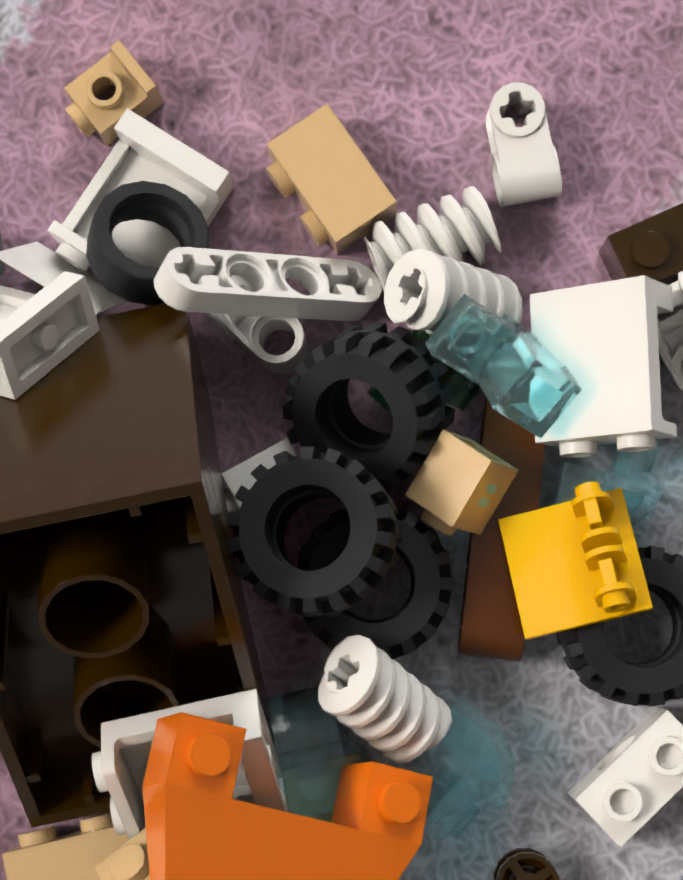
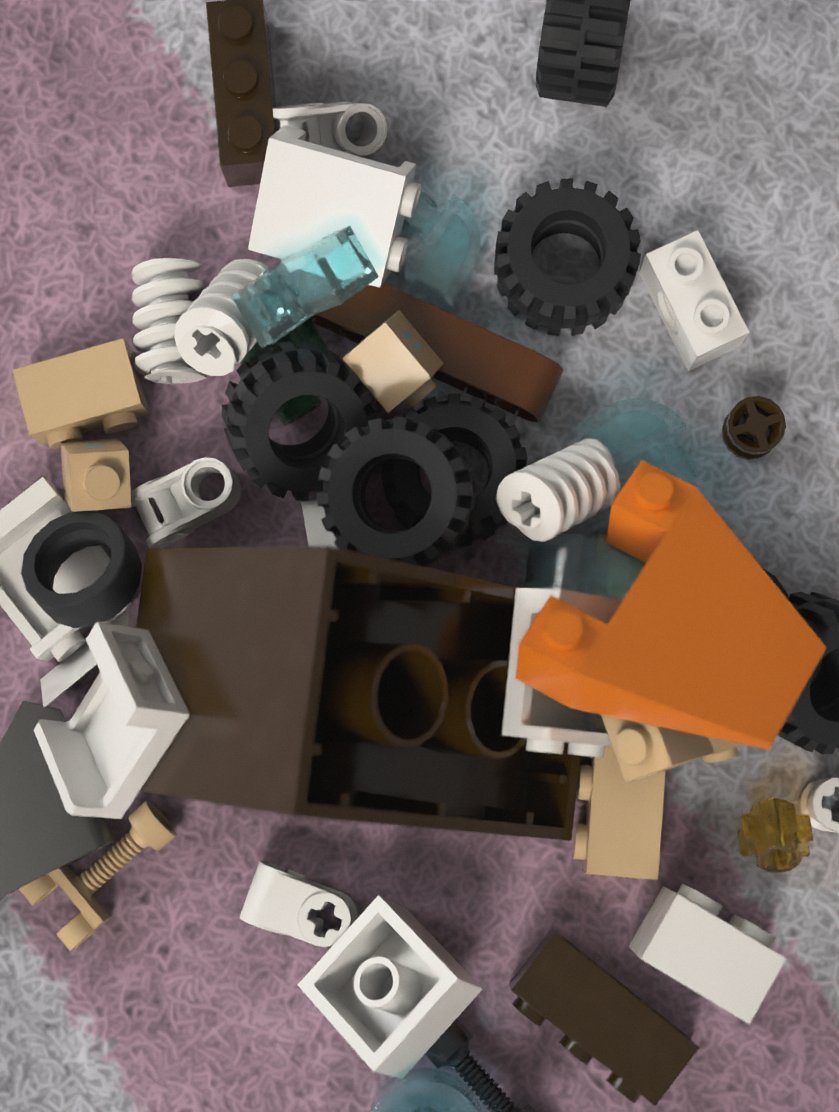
camera: 75 degrees left, 0 degrees up
(201, 283) = (138, 524): white beam -> none
(251, 220) = (96, 474): none -> tan brick
(522, 157) = (120, 221): white piece -> none
(575, 562) = (495, 286): yellow hinge -> none

